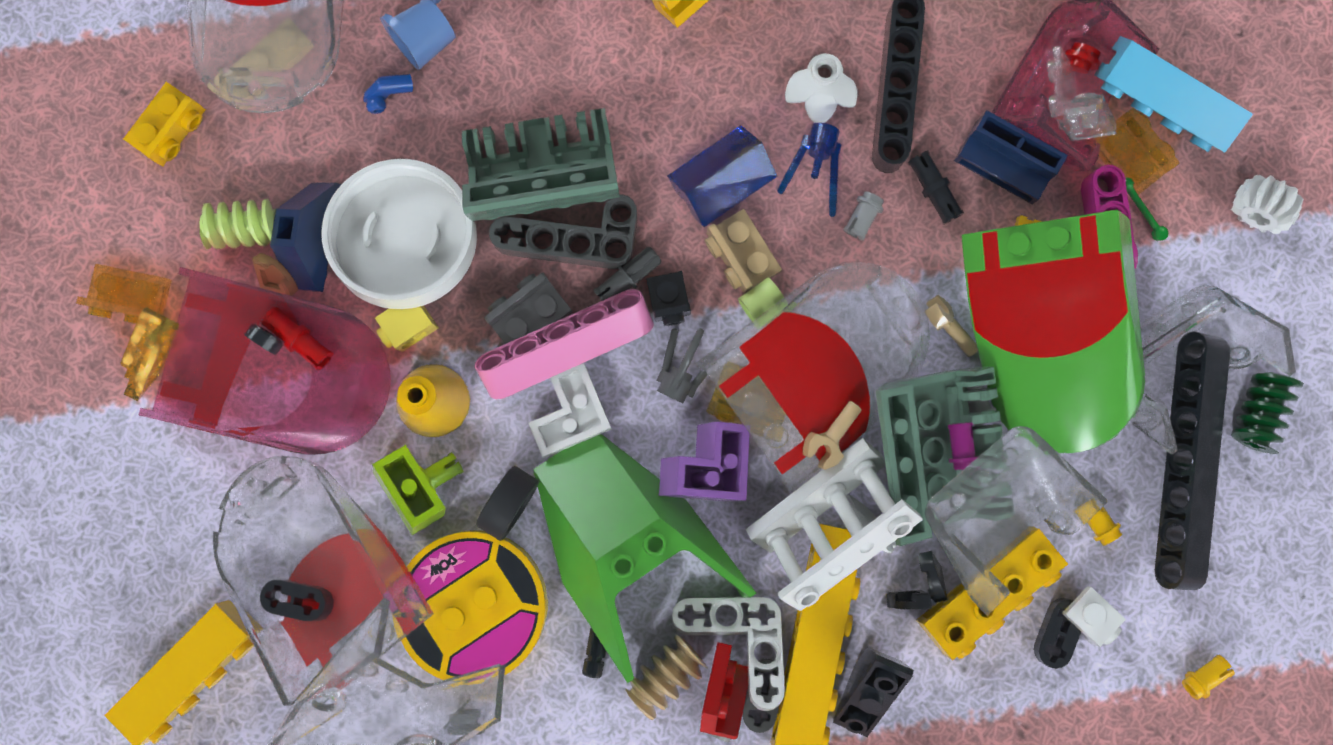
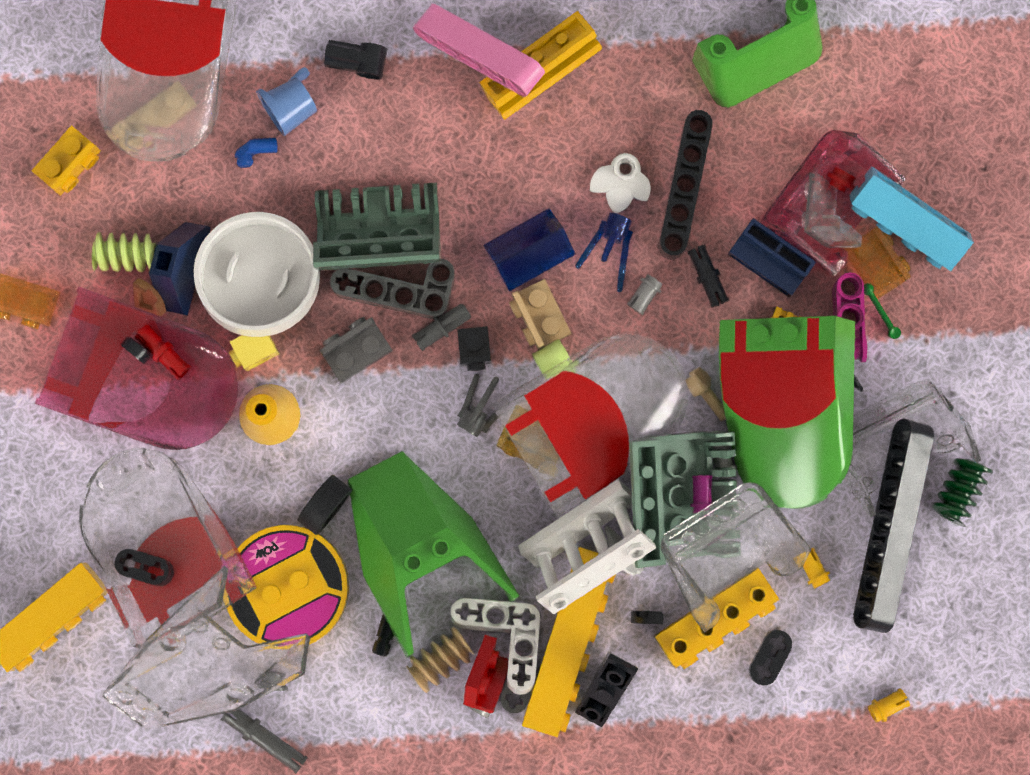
camera: 10 degrees right, 0 degrees up
(147, 351) = (39, 350): clear yellow bracket -> none
(413, 488) = (248, 485): lime brick -> none
(564, 344) = (384, 378): bright pink beam -> none
(580, 415) = (390, 440): white plate -> none
(716, 471) = (498, 495): medium lavender brick -> none
(831, 438) = (593, 476): tan bar -> none
(935, 578) = (671, 596): black tile -> none
(1094, 617) = (798, 646): white bracket -> none
(1267, 204) = (981, 318): white gear -> none

